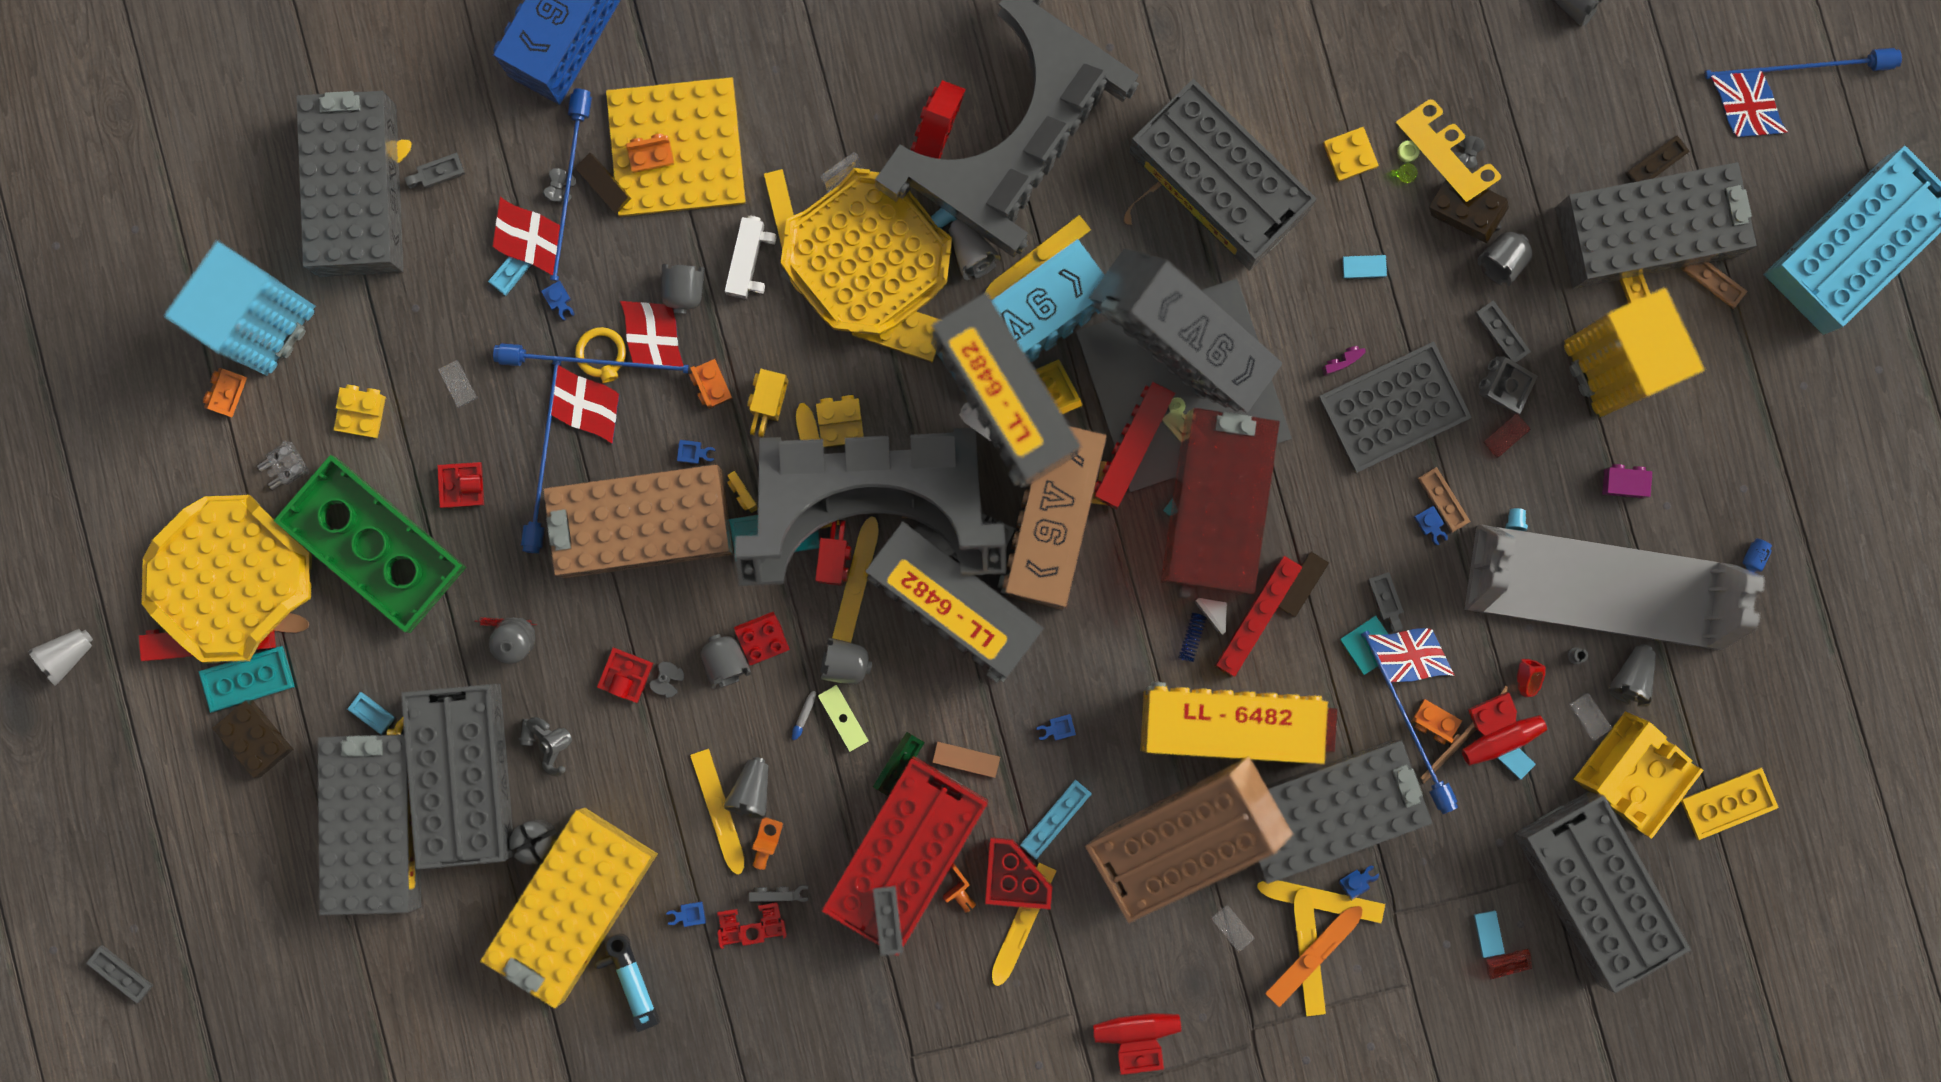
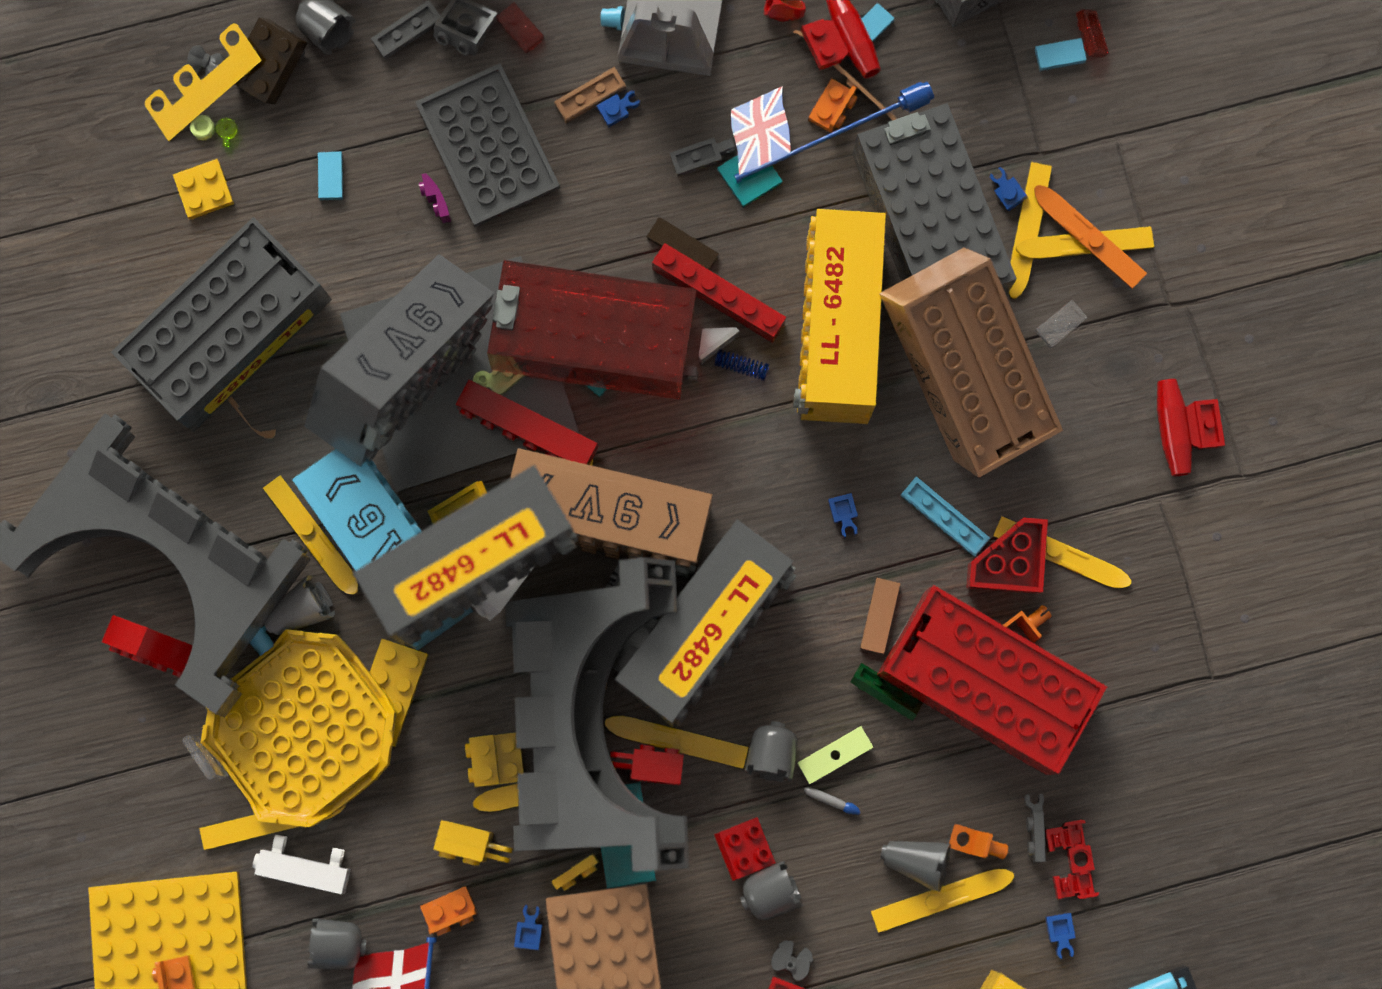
camera: 85 degrees left, 5 degrees down
(888, 920) = (1068, 696): dark grey plate -> none

